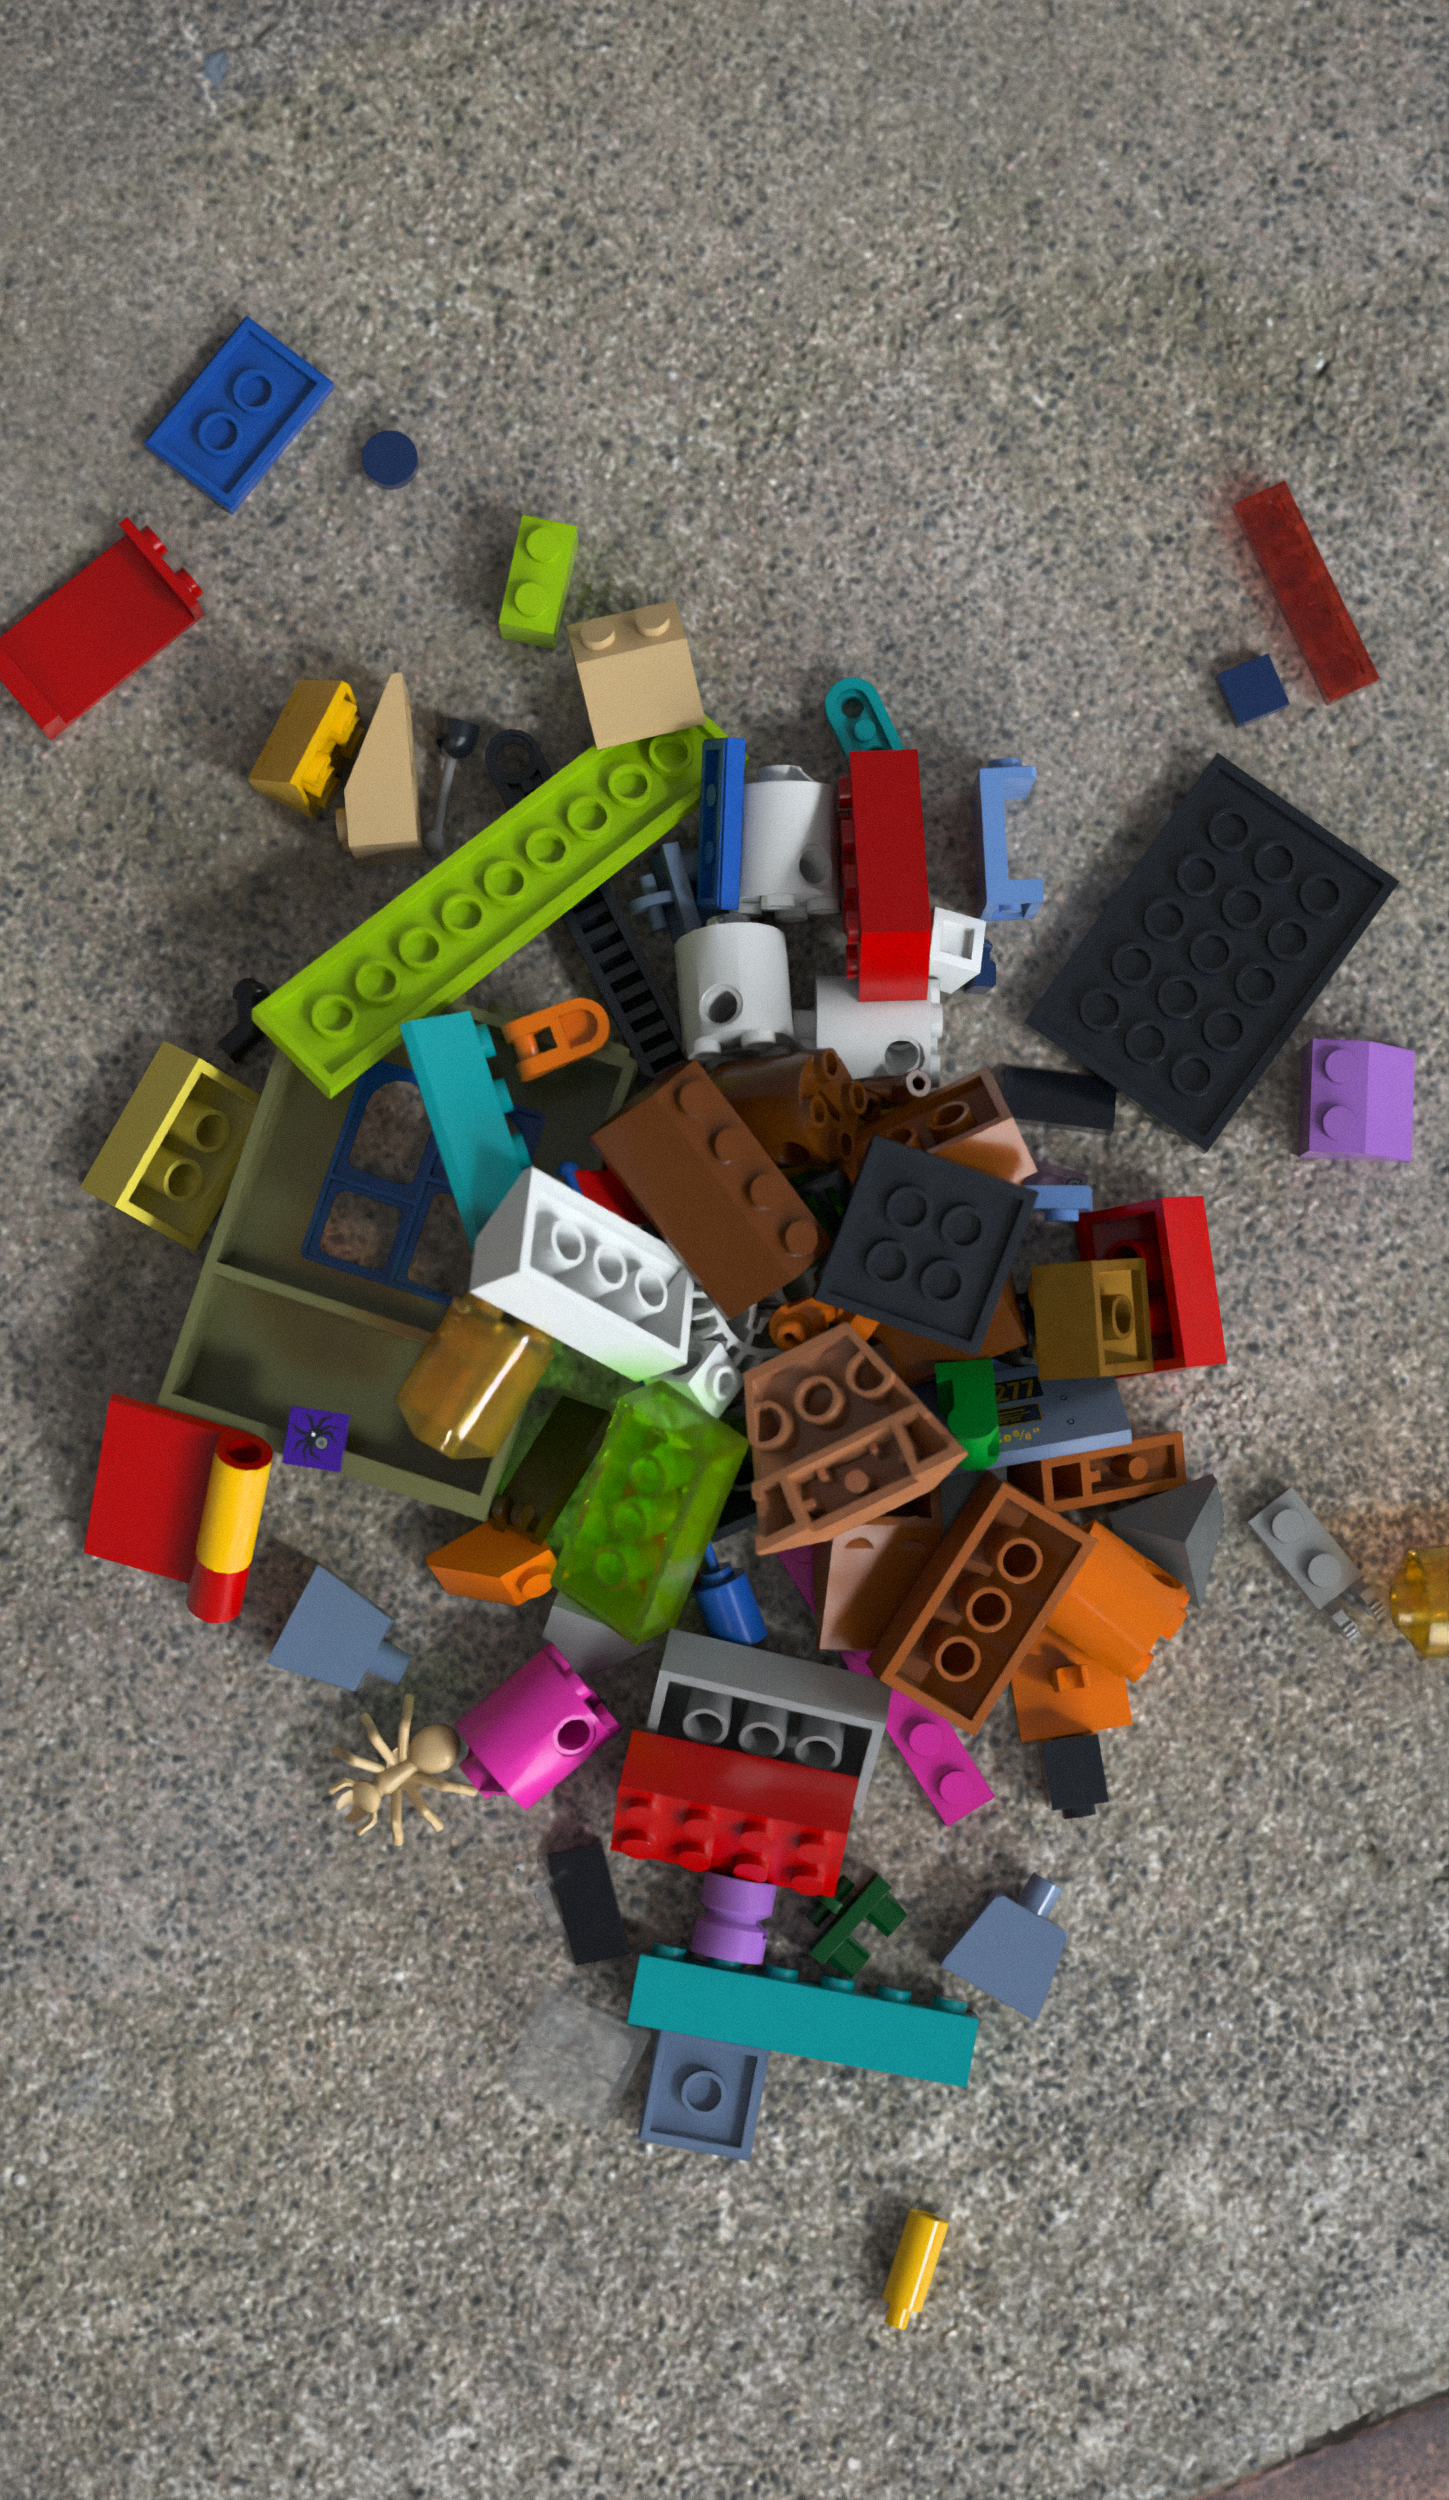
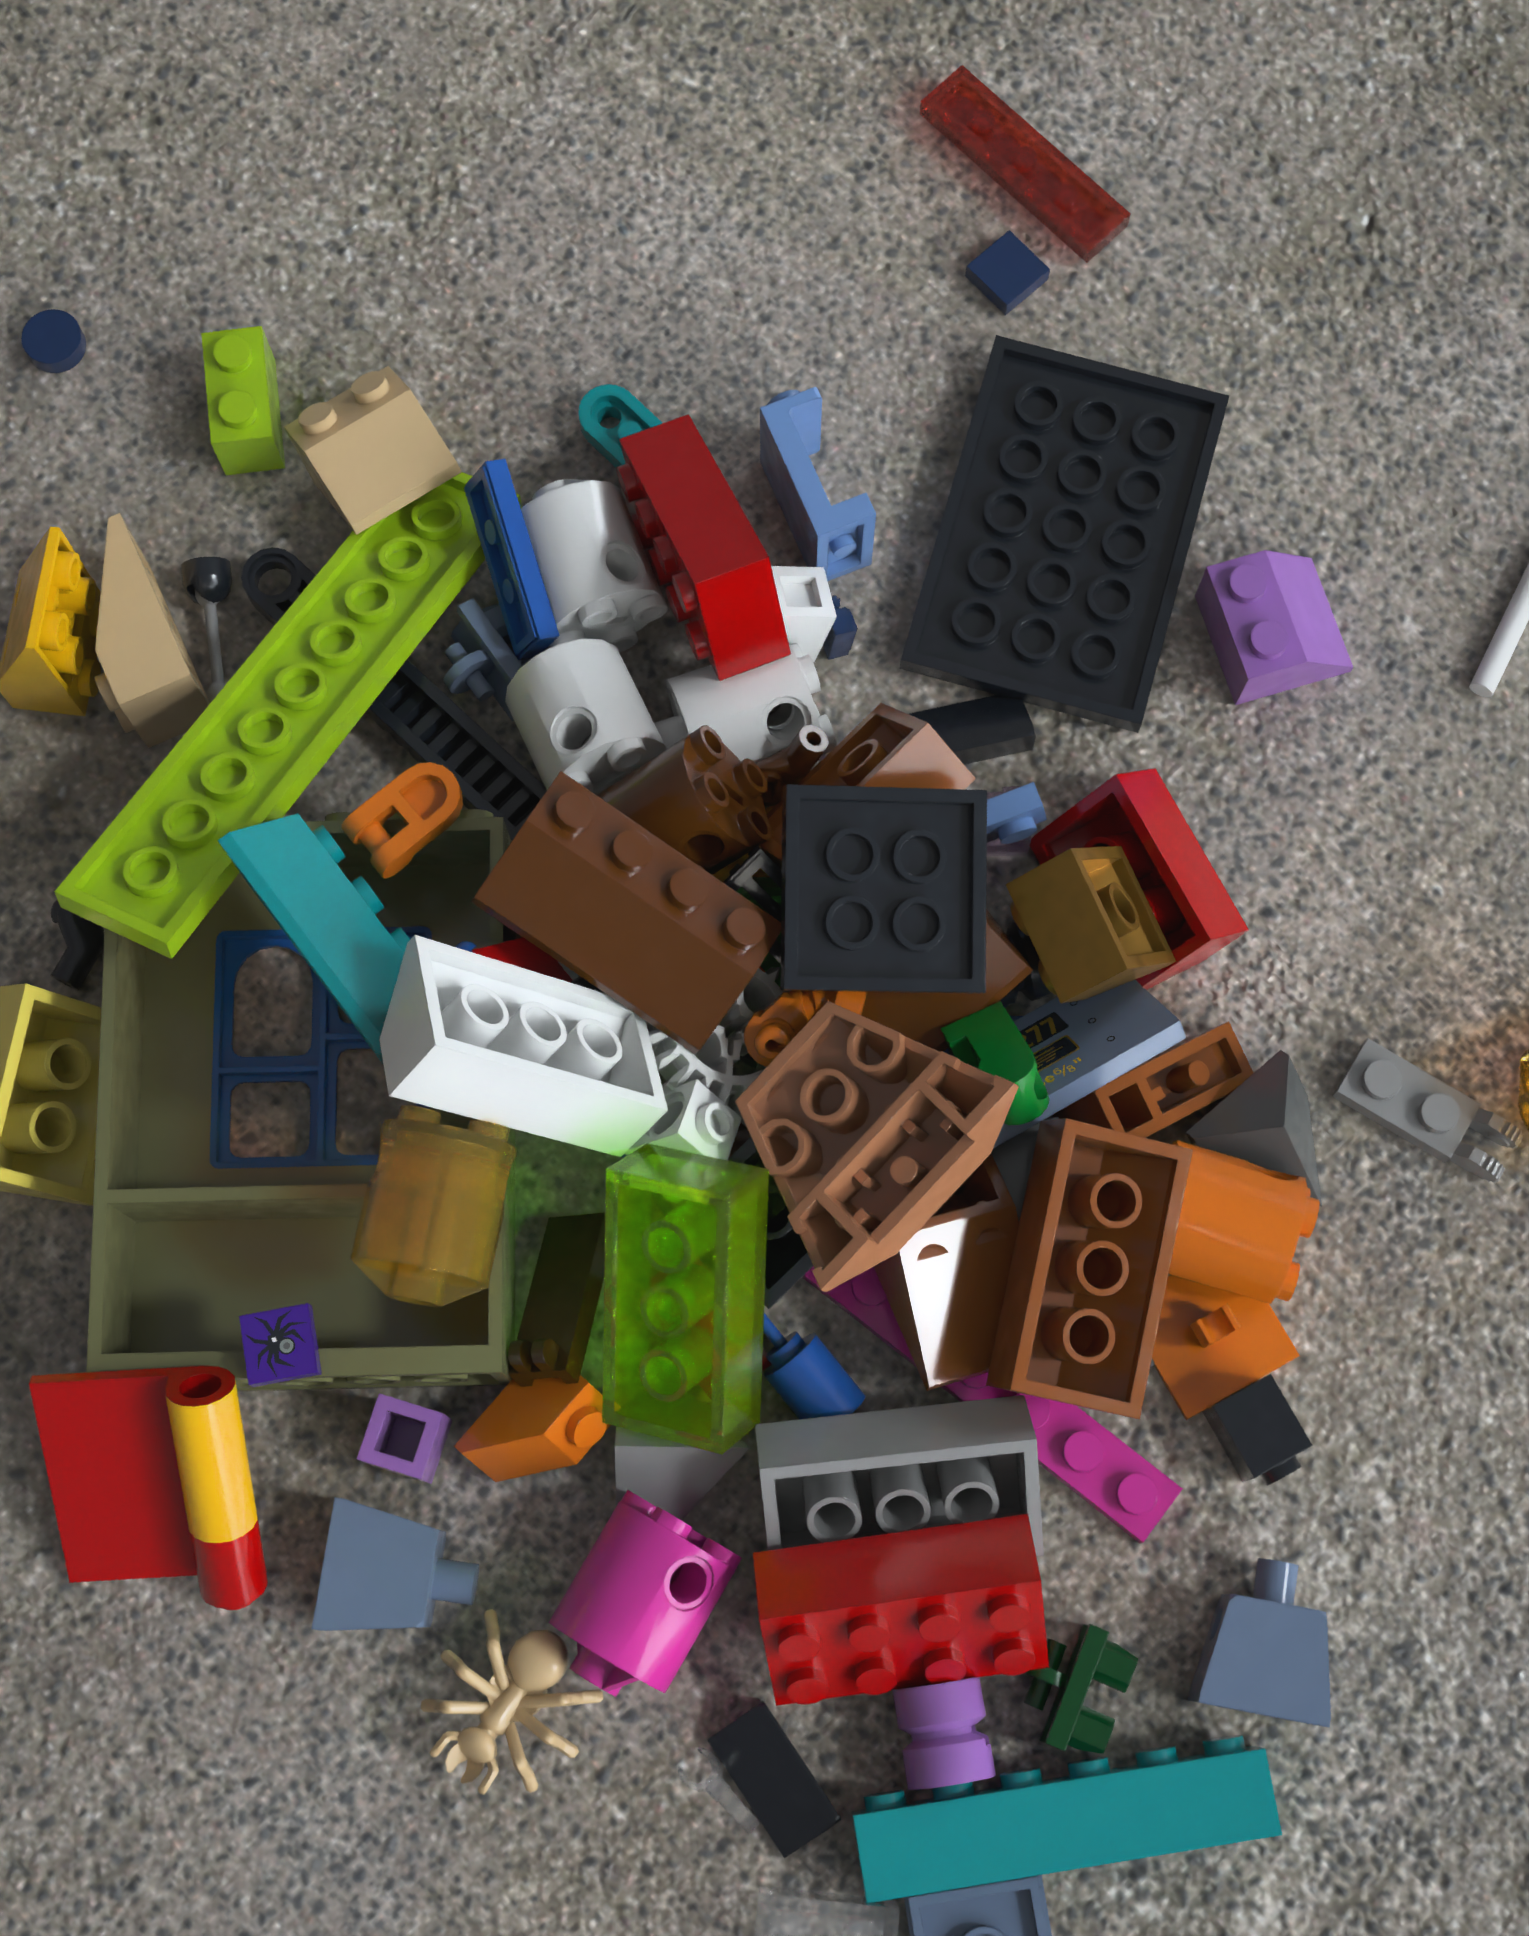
camera: 10 degrees left, 10 degrees down
(387, 1537) = (404, 1438): none -> medium lavender brick

